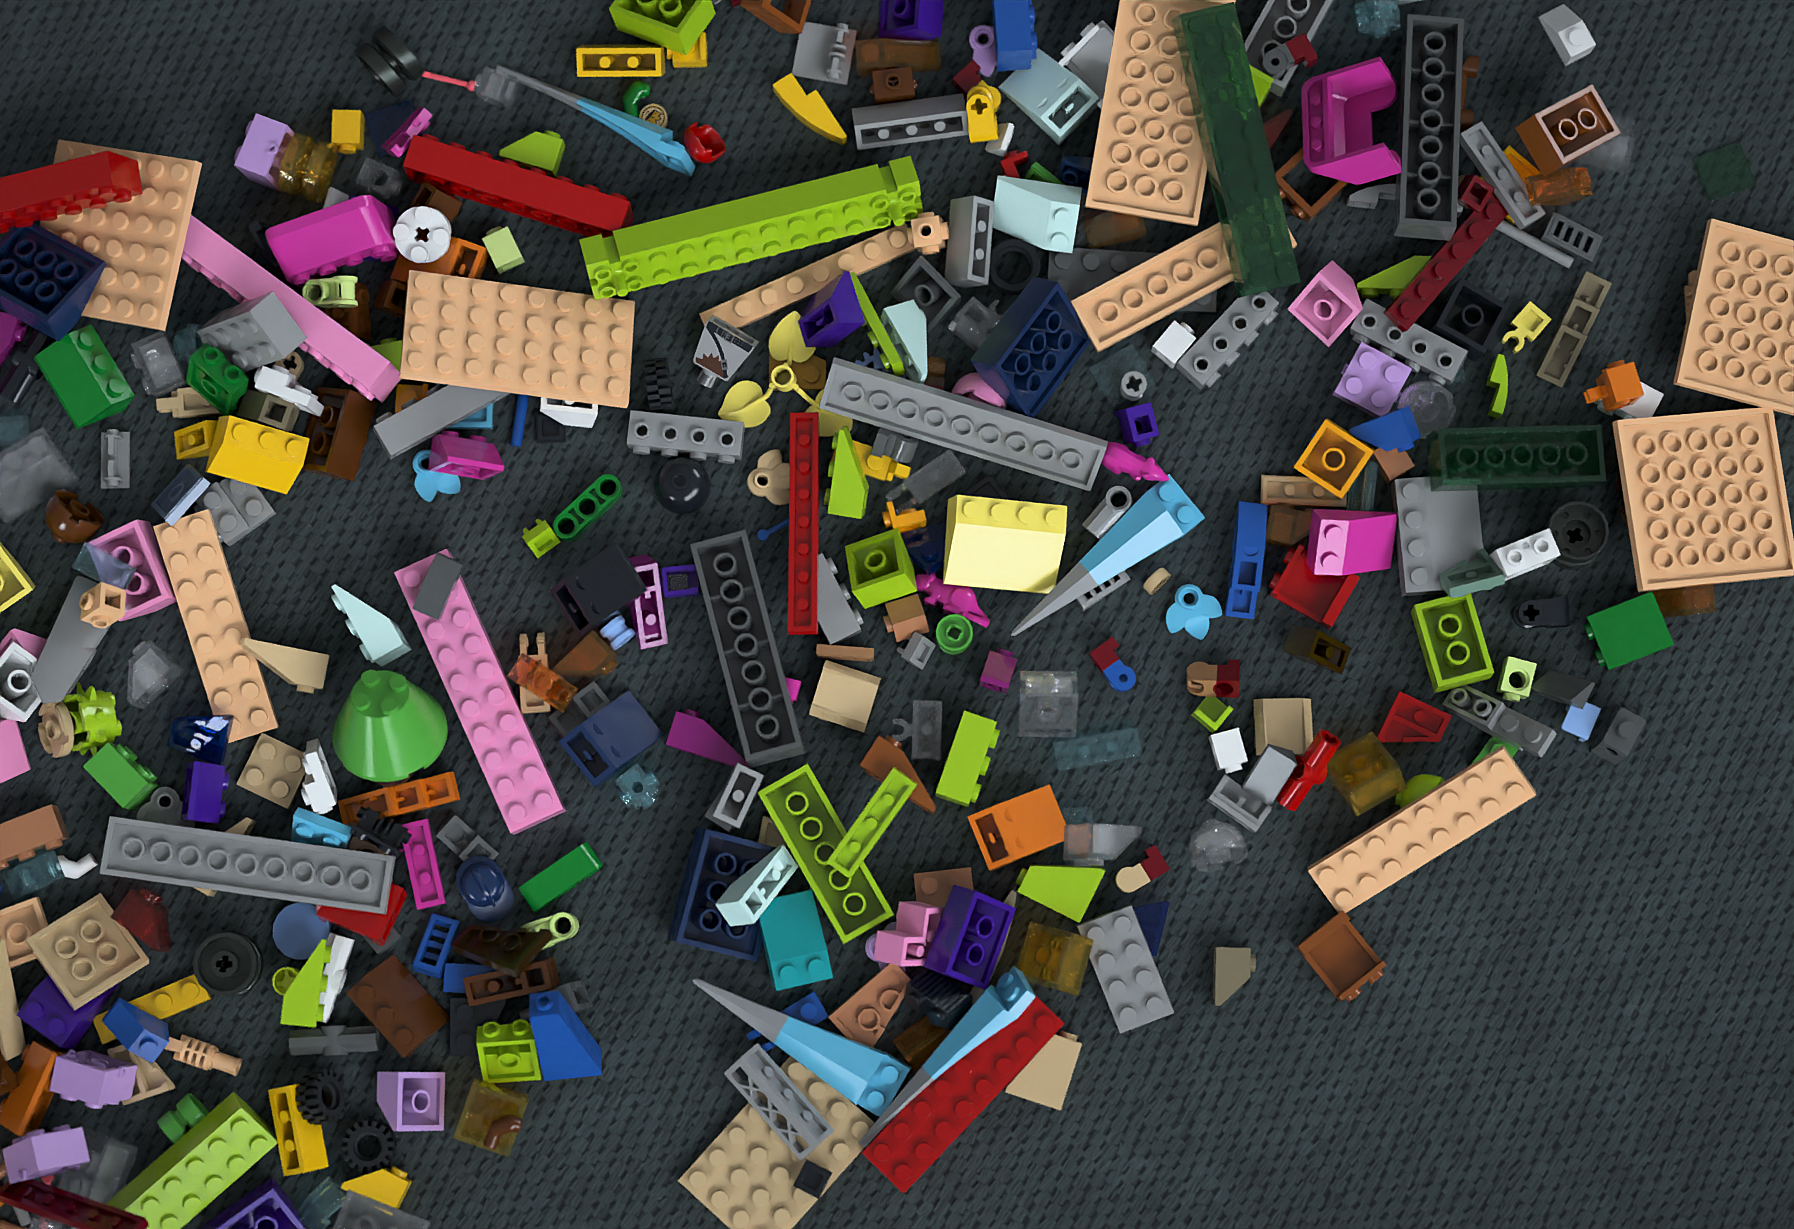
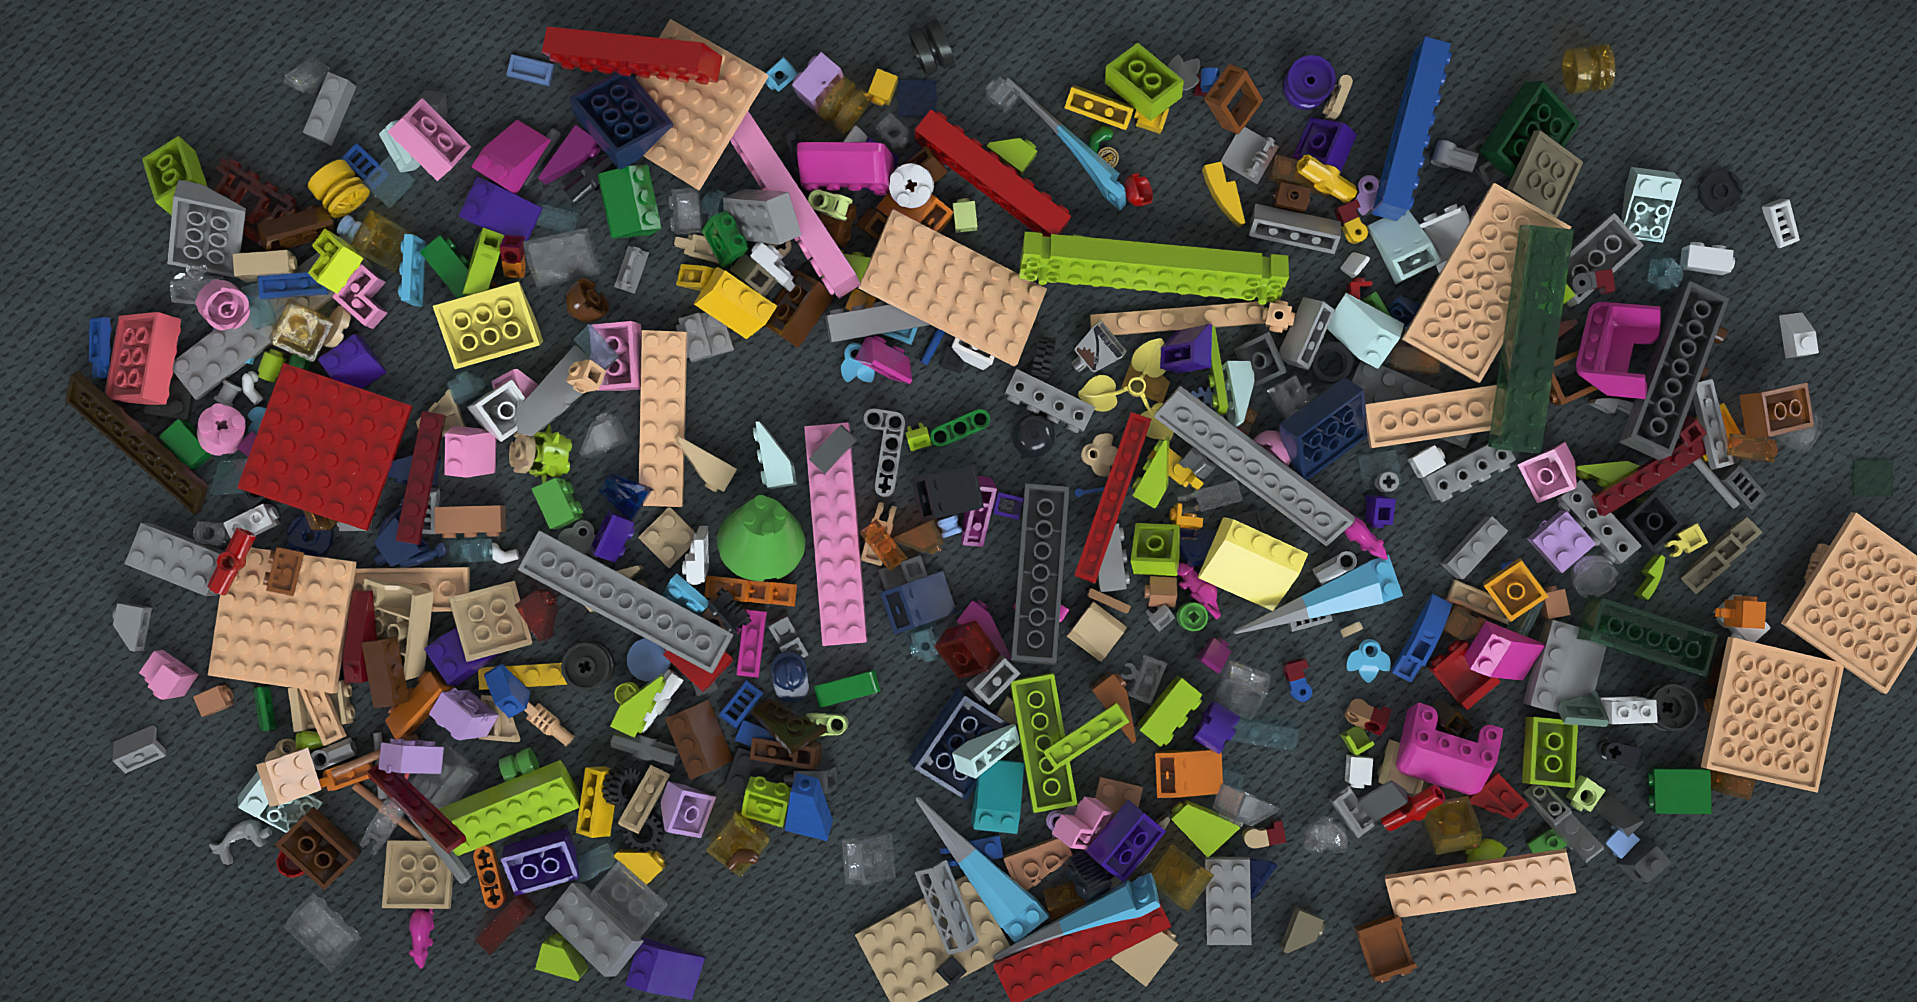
camera: 15 degrees right, 5 degrees up
(180, 494) = (669, 313): sand blue plate -> none
(220, 148) = (788, 71): none -> medium azure brick
(355, 1103) = (644, 799): none -> tan plate
(402, 137) = (922, 106): dark pink wing -> none
(469, 85) = (983, 85): coral hinge -> none
(506, 571) = (886, 454): none -> light grey beam
(661, 1078) = (868, 859): none -> clear slope
(690, 773) = (967, 649): none -> clear red brick
(926, 48) = (1326, 178): none -> yellow piece
(981, 118) = (1349, 245): yellow piece -> none
(1032, 758) = (1215, 727): none -> dark purple brick
(1269, 427) = (1474, 547): none -> light grey brick
(1325, 693) = (1445, 757): none -> dark pink windscreen
(1389, 430) = (1563, 584): blue slope -> none

